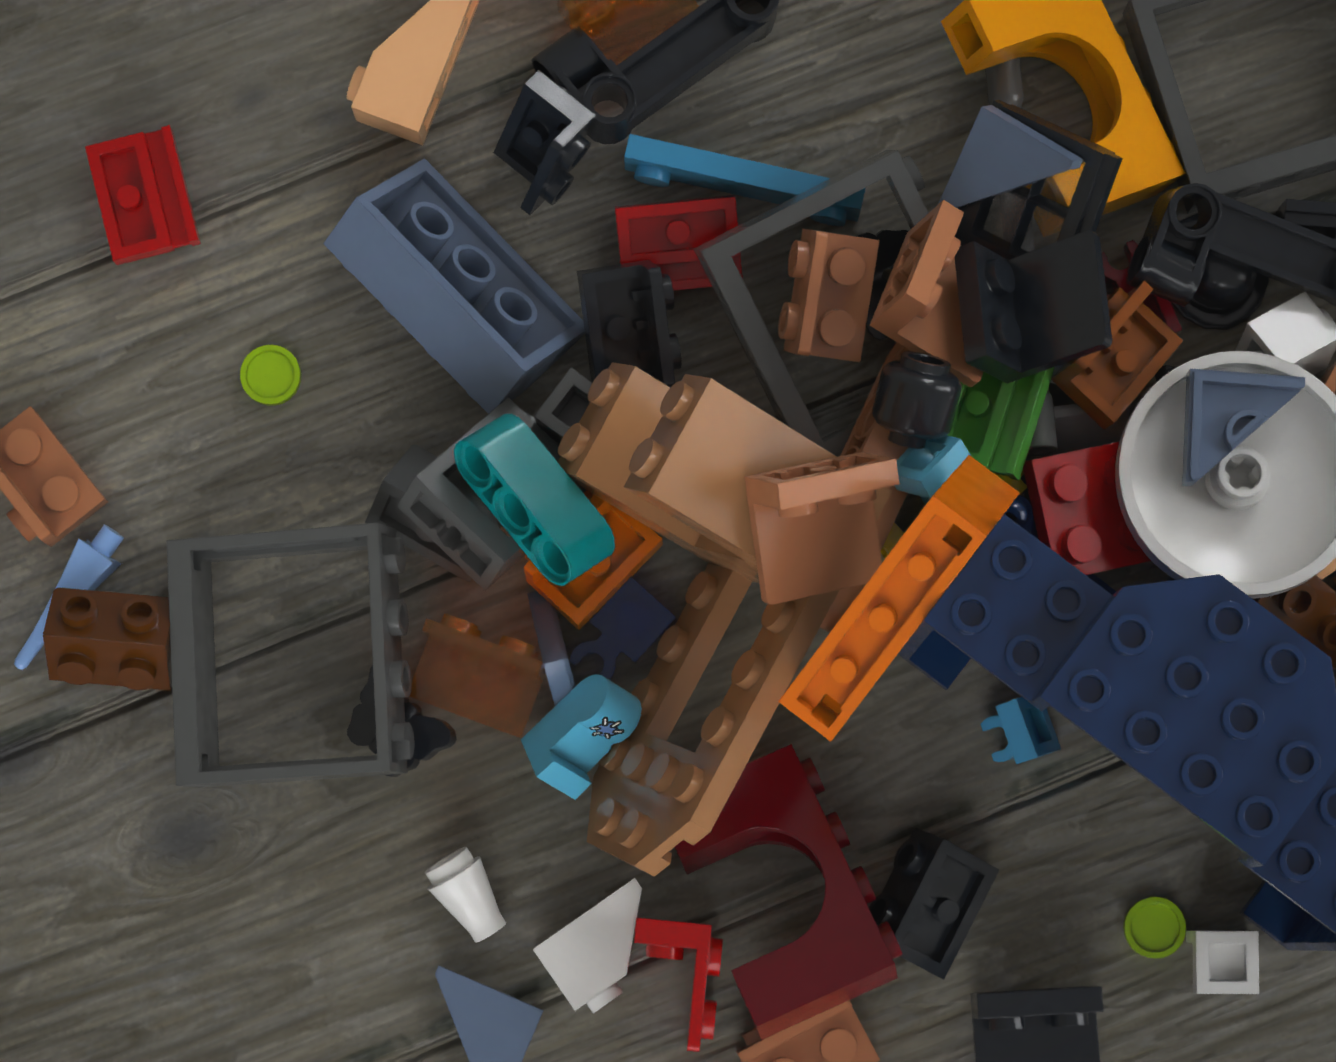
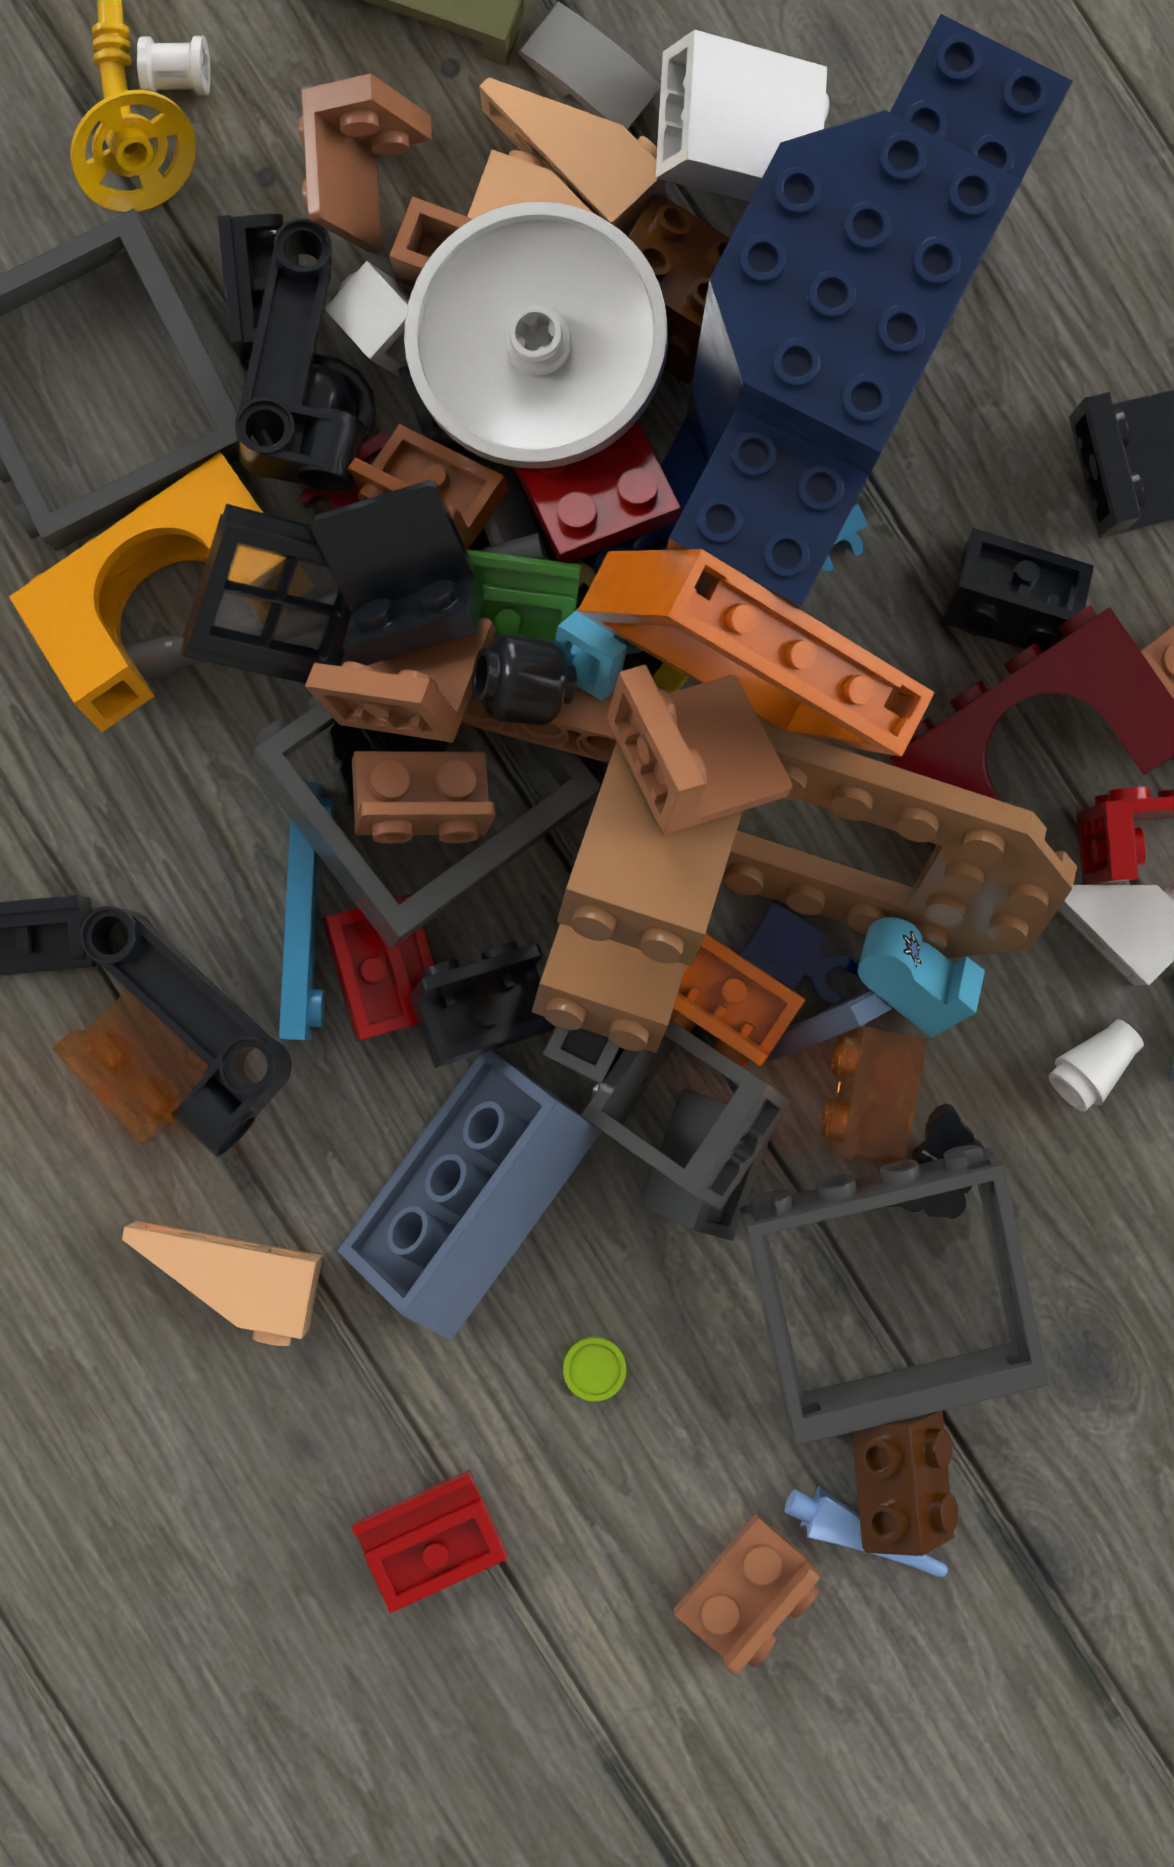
camera: 100 degrees left, 5 degrees up
(534, 499) = (695, 1066): teal beam -> none
(545, 139) = (300, 1126): black bracket -> none
(1003, 157) = (244, 634): sand blue tile -> none
(1154, 927) = (998, 365): lime piece -> none
(1225, 961) = (1026, 283): white panel -> none
(1226, 410) = (476, 358): sand blue tile -> none

